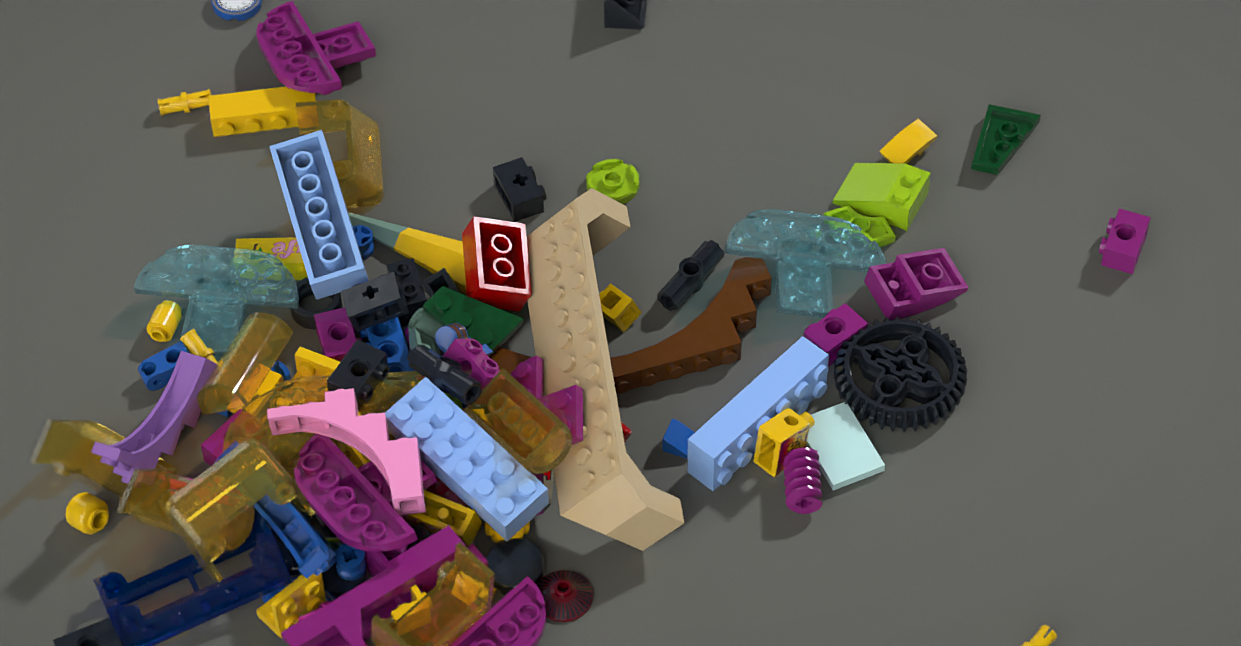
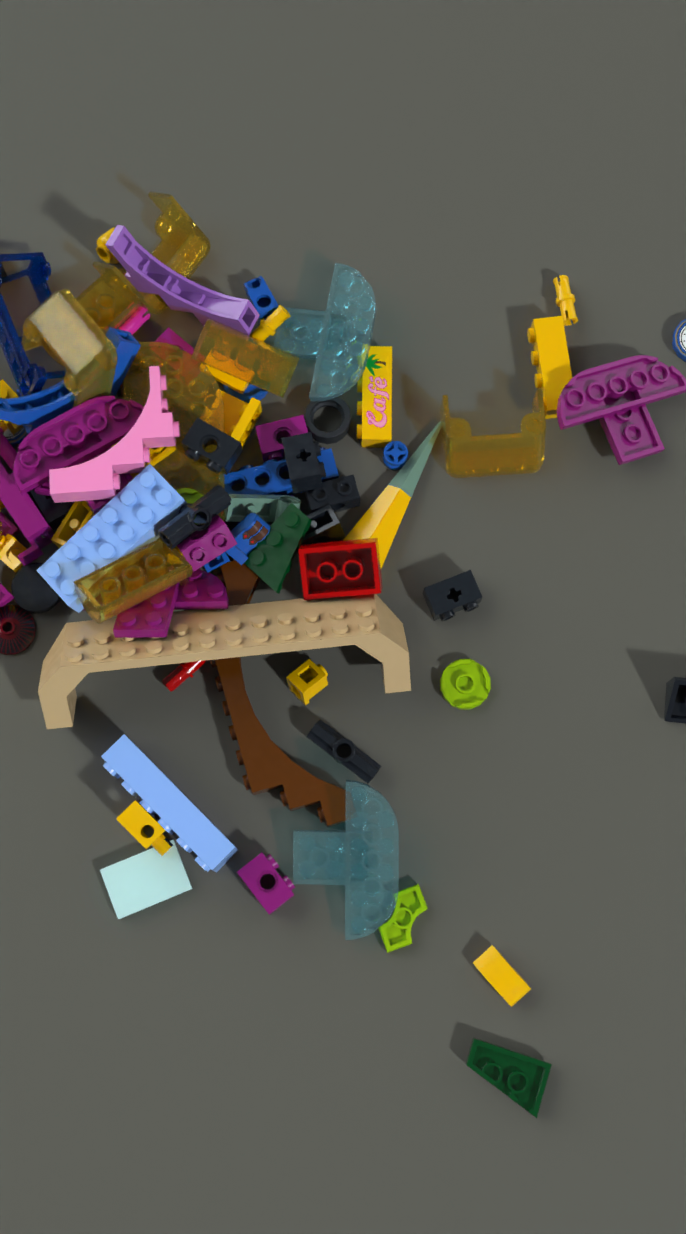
camera: 90 degrees right, 25 degrees up
(164, 321) = (311, 295): yellow brick -> none
(318, 214) = (396, 409): light blue brick -> none
(676, 439) = (160, 734): blue slope -> none
(802, 480) = (102, 842): magenta piece -> none
(885, 191) = (442, 943): lime slope -> none
(901, 374) = (194, 968): black gear -> none
(915, 283) = (327, 968): magenta slope -> none
(1125, 240) = (380, 1201): magenta brick -> none

